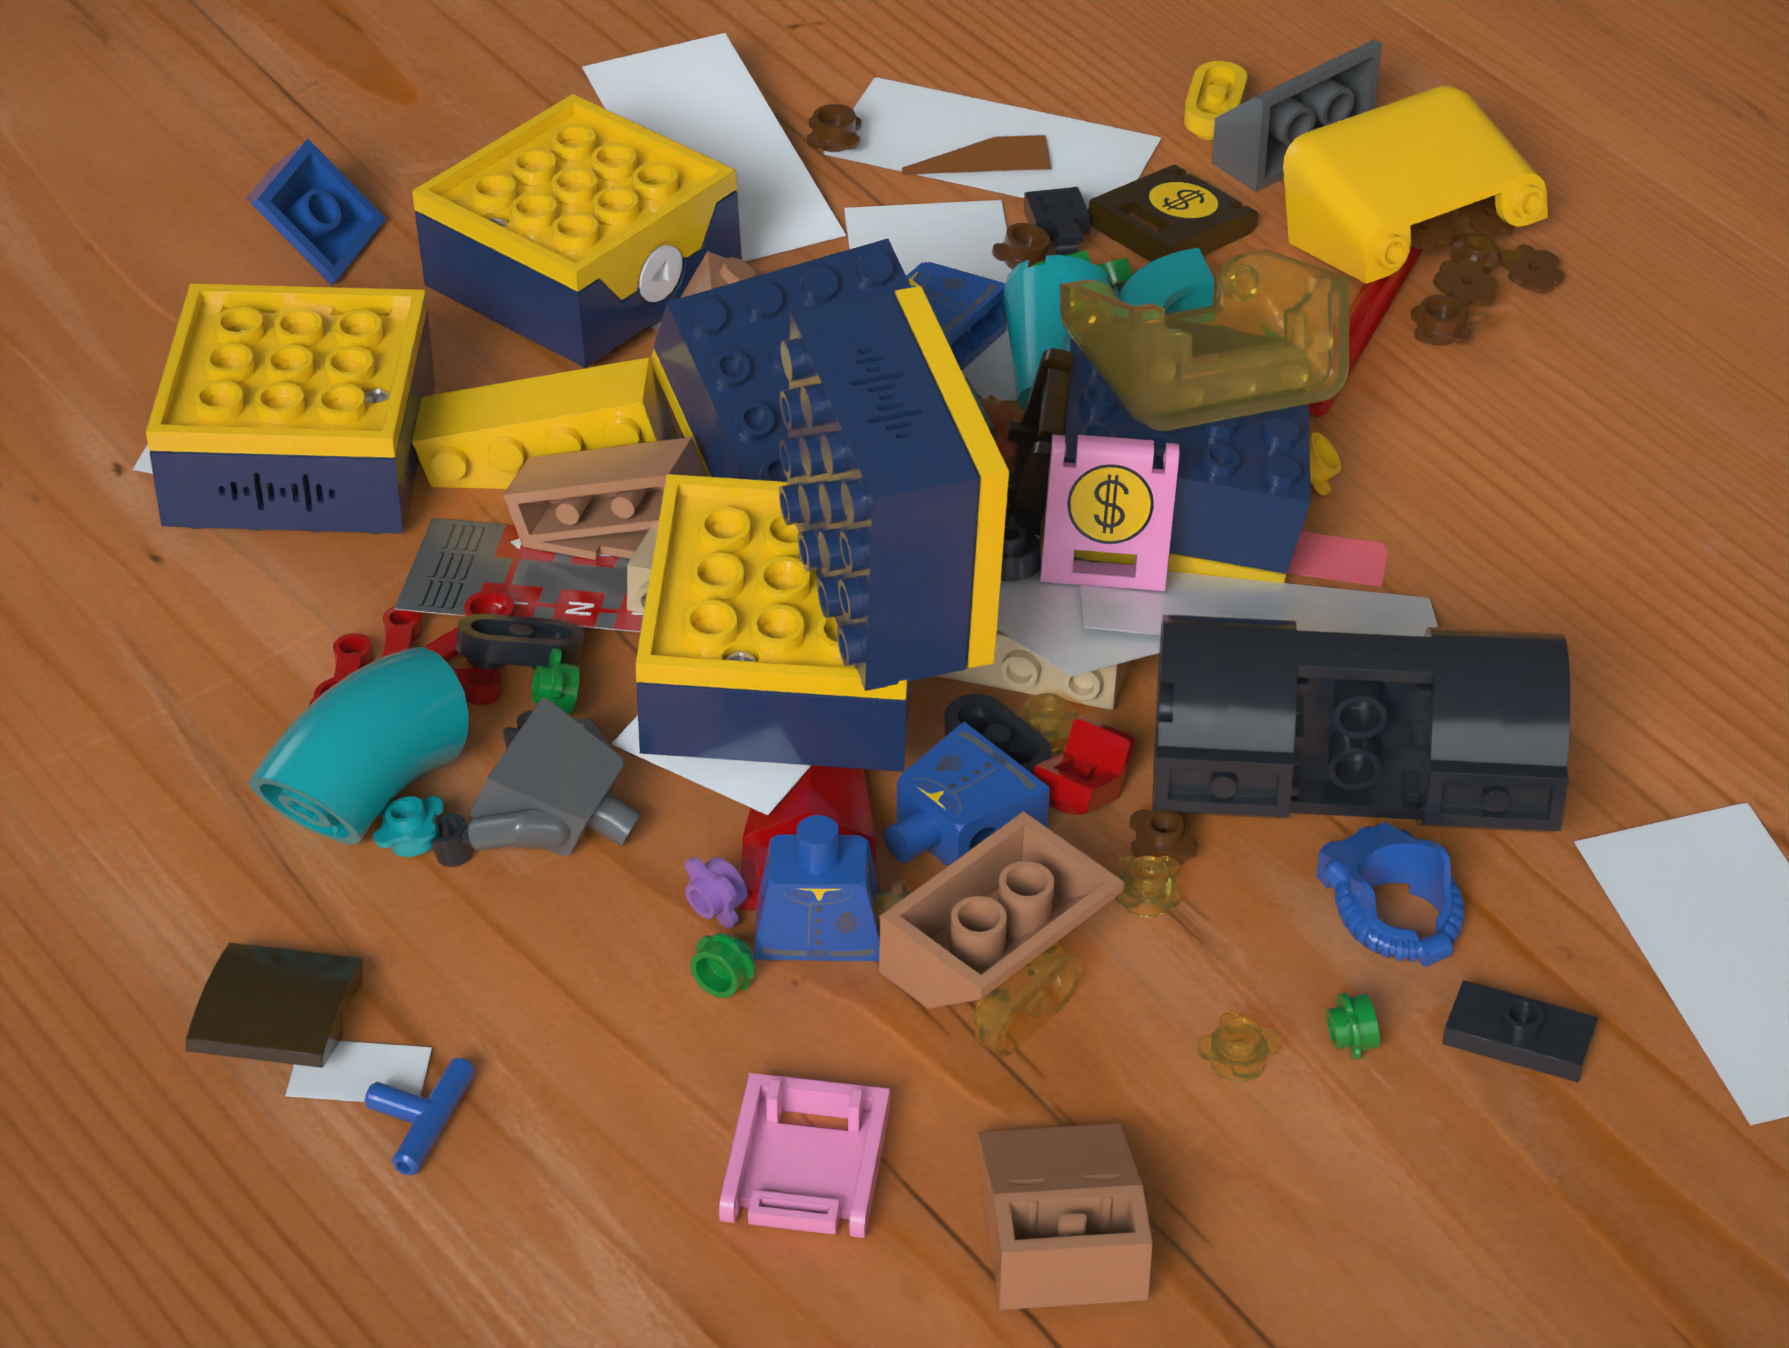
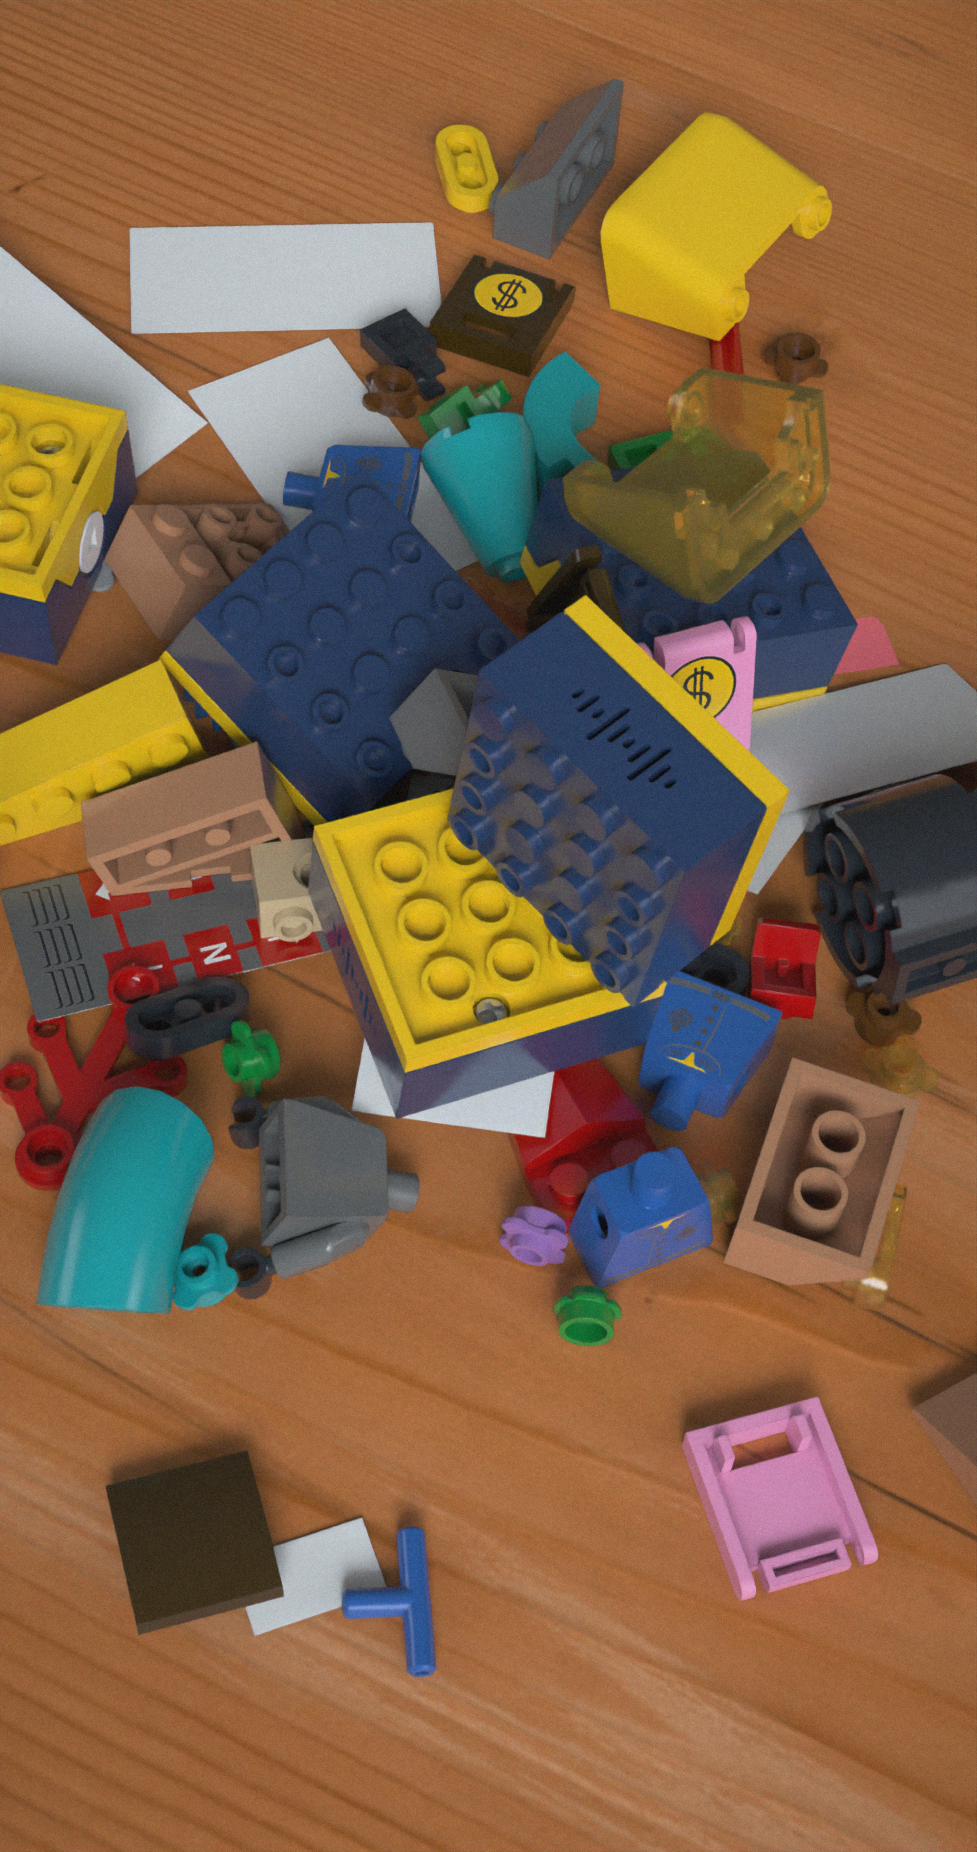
camera: 30 degrees left, 15 degrees up
(834, 128) = (134, 305): reddish brown plate -> none
(992, 154) = (290, 290): dark orange sticker -> none
(1476, 256) = (789, 278): reddish brown plant -> none

